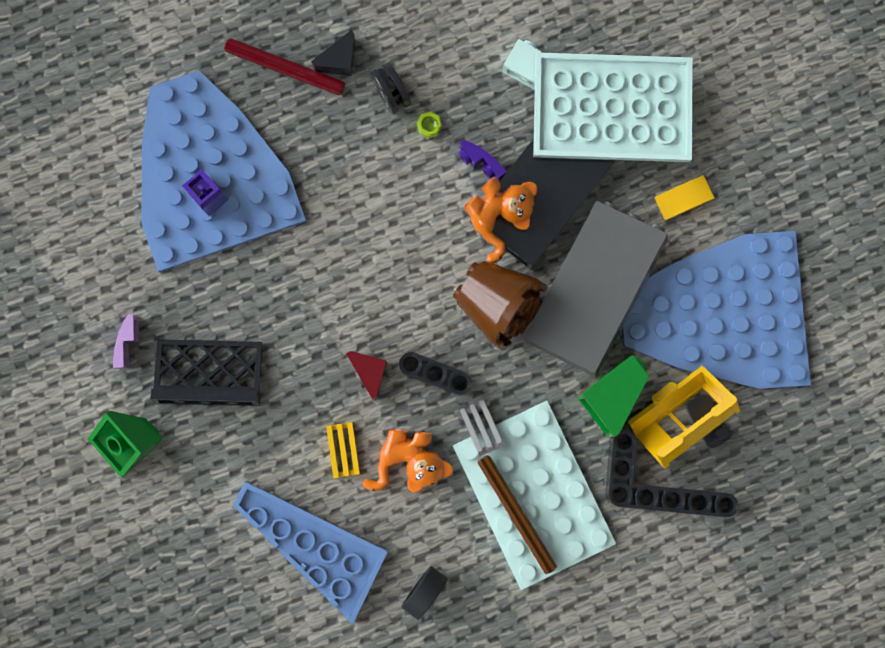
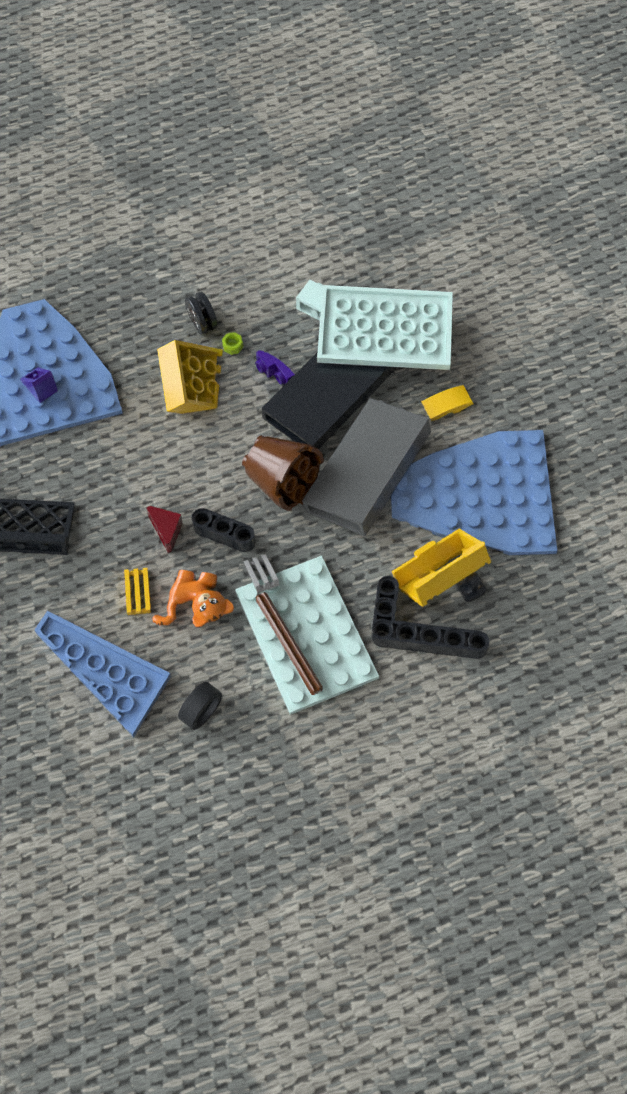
camera: 10 degrees right, 20 degrees down
(284, 66) = (116, 299): dark red axle -> none
(338, 57) = (159, 292): black slope -> none
(383, 177) = (189, 376): none -> yellow wedge
(513, 204) = (298, 395): orange animal -> none
(615, 394) = (378, 545): green slope -> none

